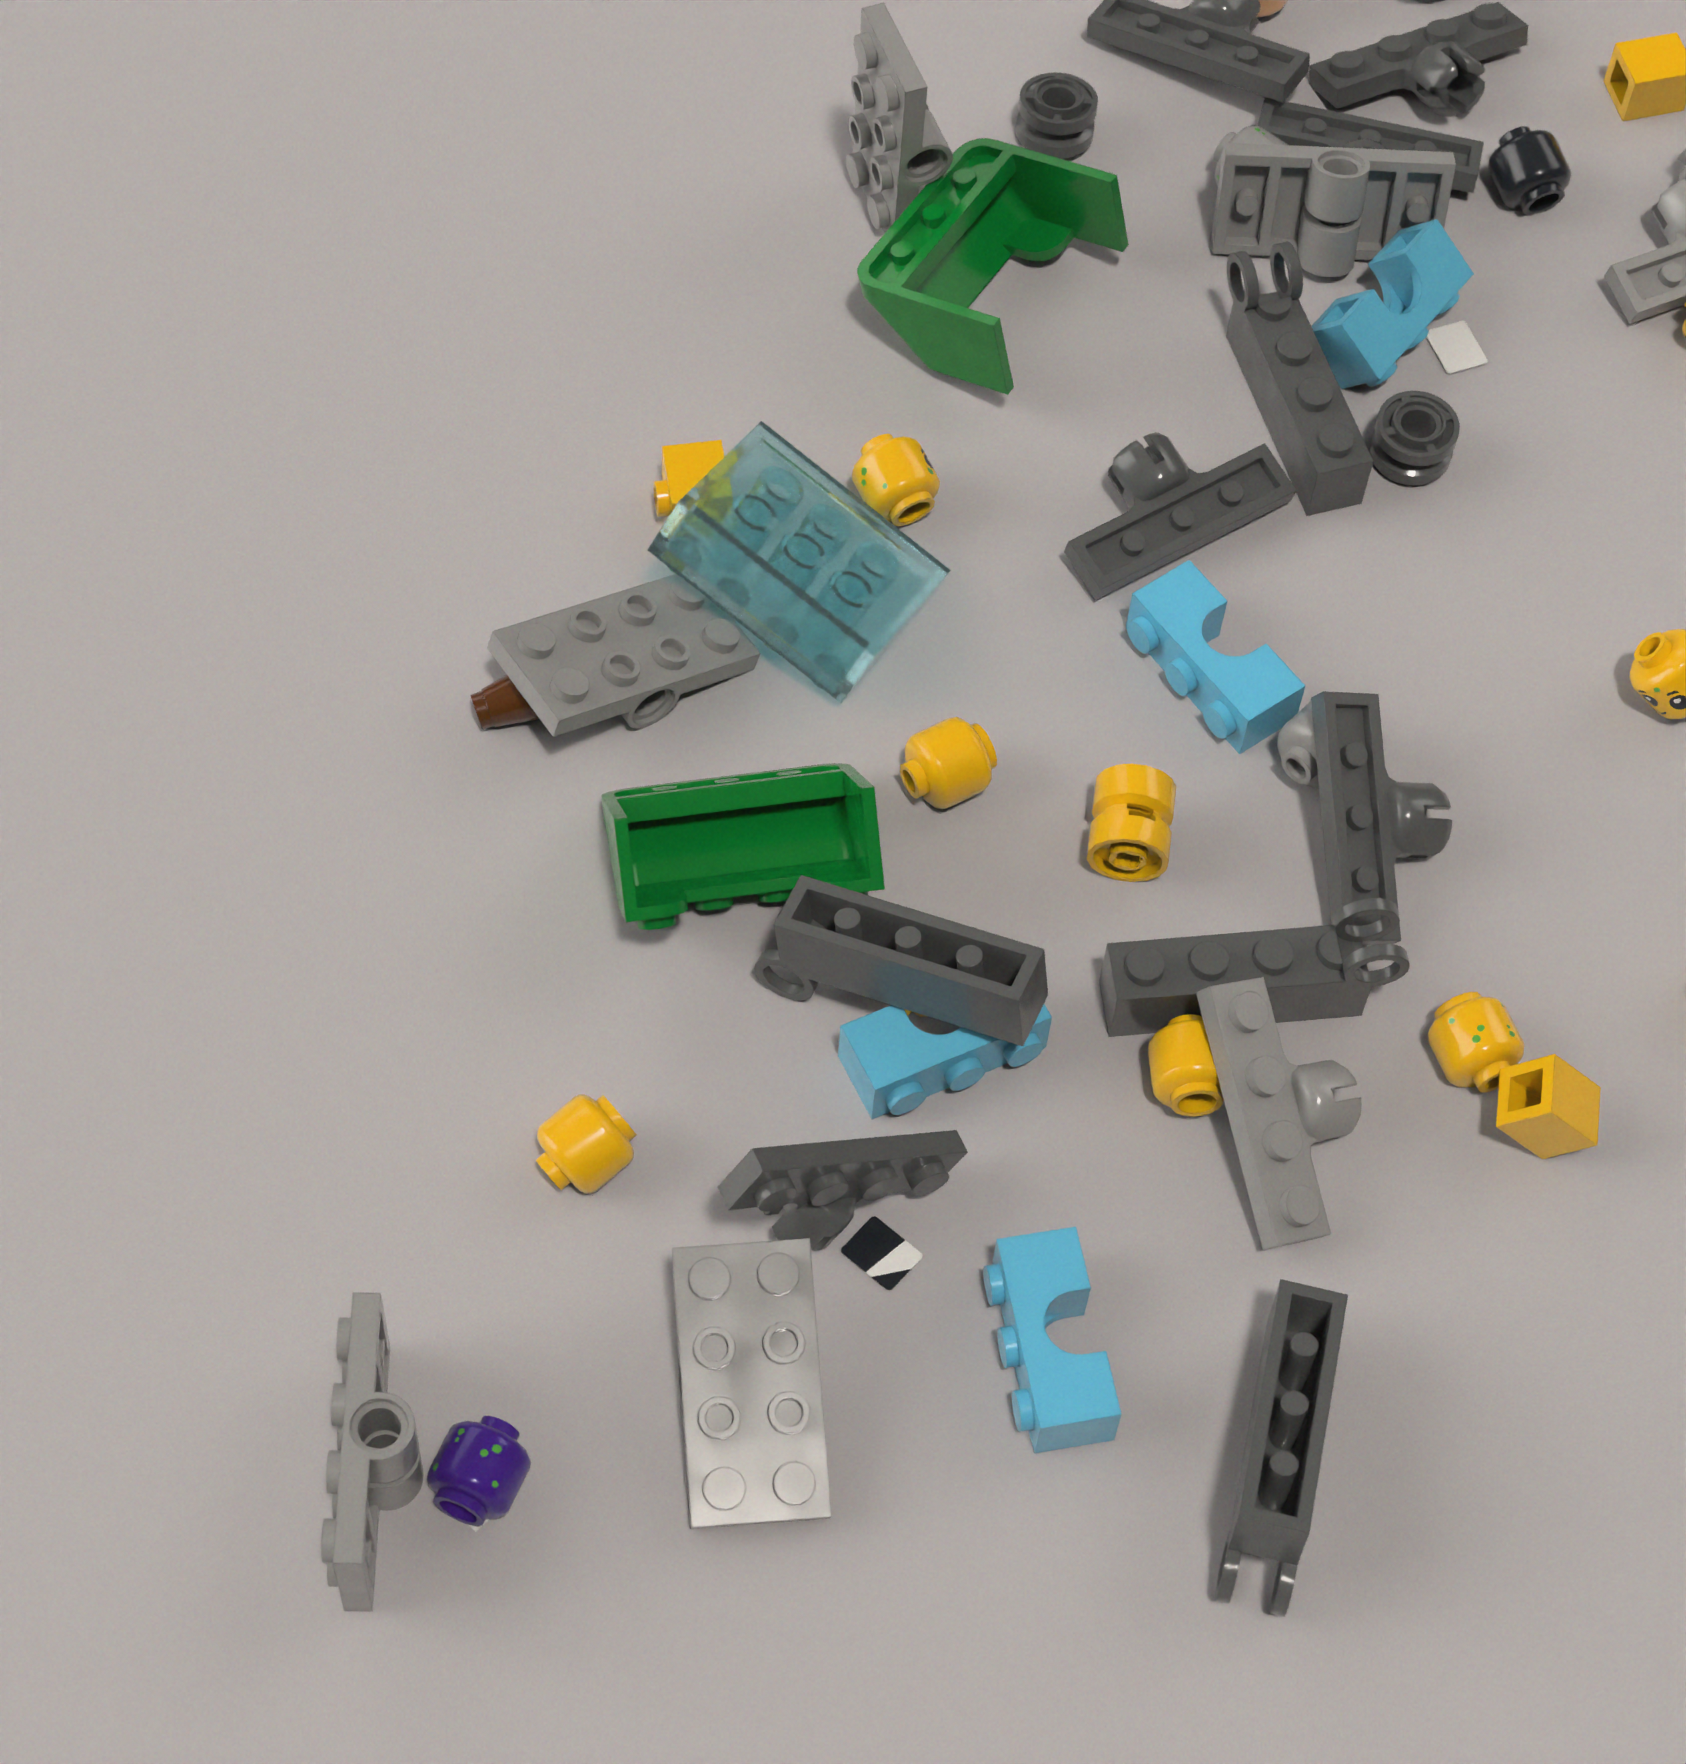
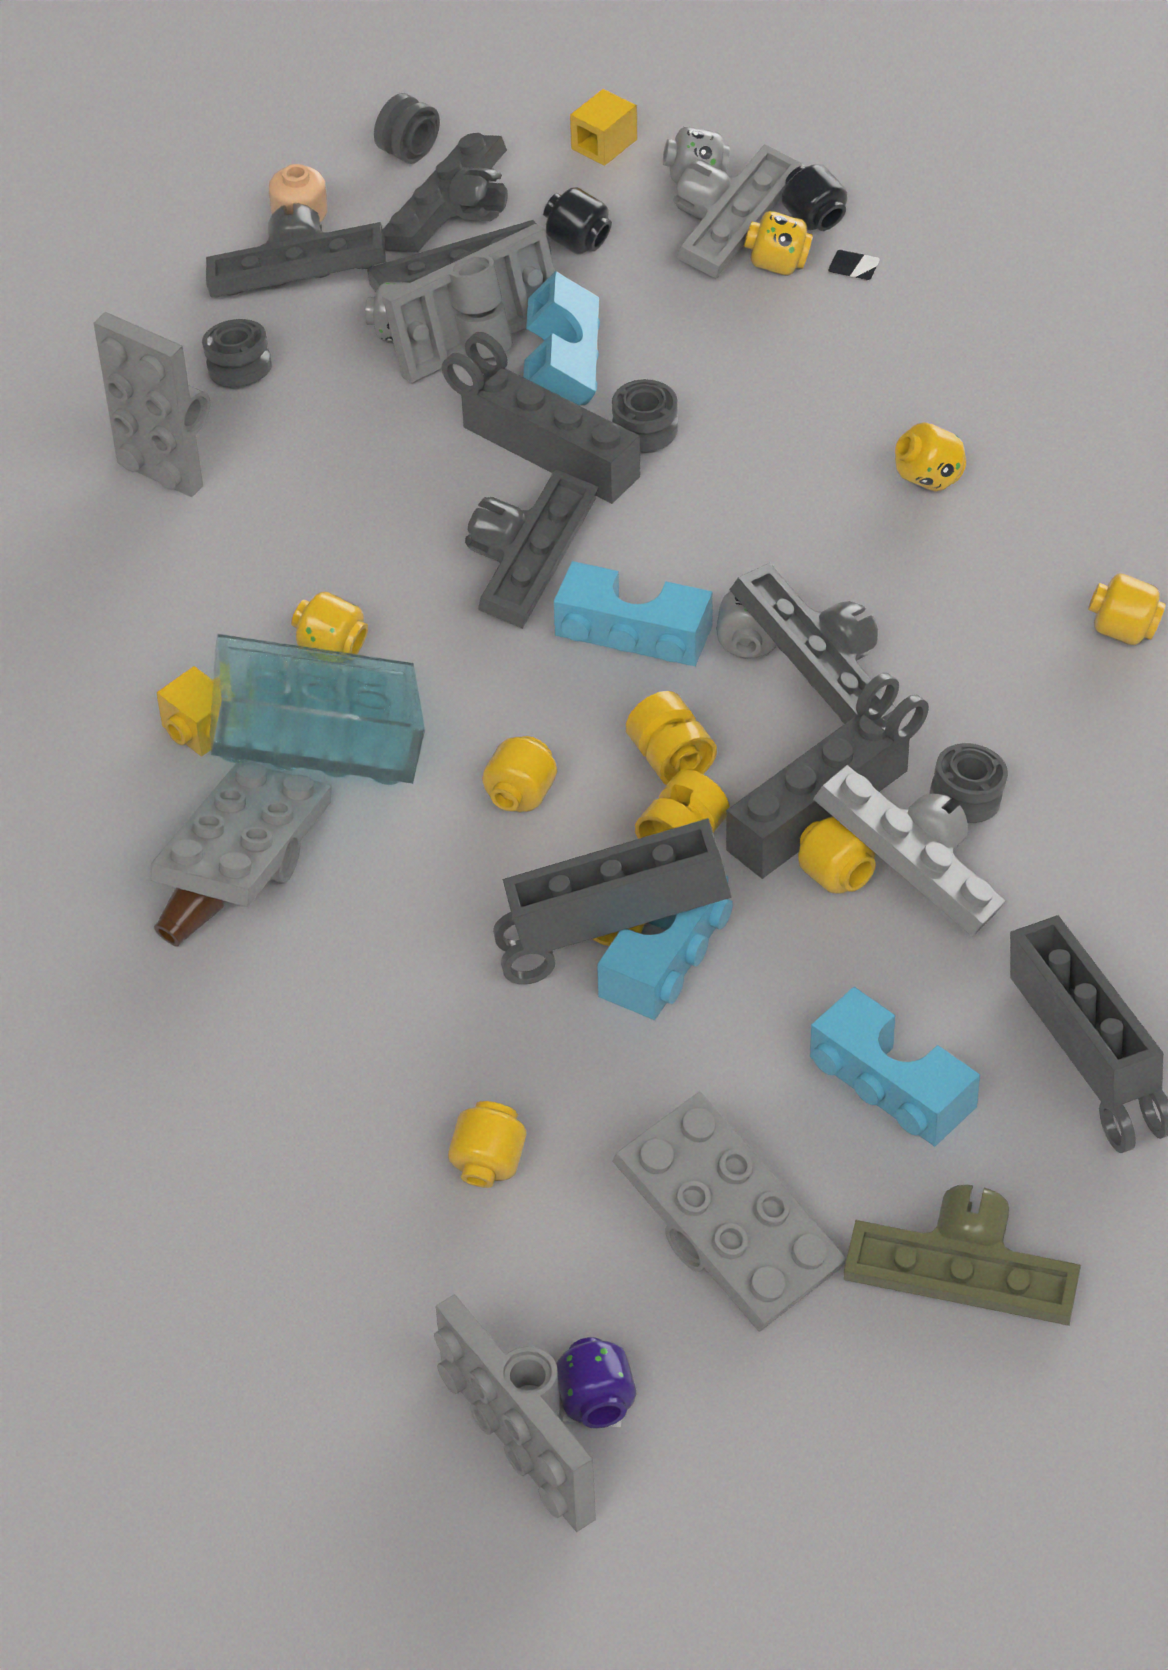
camera: 30 degrees left, 10 degrees down
(740, 839) = (438, 885): green windscreen -> none
(826, 1179) = (668, 1056): dark grey plate -> none
(881, 1253) = (734, 1092): black sticker -> none
(945, 1605) = (964, 1261): none -> olive plate
(963, 231) = (239, 450): green windscreen -> none
(1075, 917) = (684, 801): none -> yellow wheel
(1420, 1057) = (972, 778): none -> dark grey wheel
(1456, 347) = (619, 352): white sticker -> none
(1474, 1040) = (999, 730): yellow head -> none
(1548, 1106) = (1074, 743): yellow brick -> none

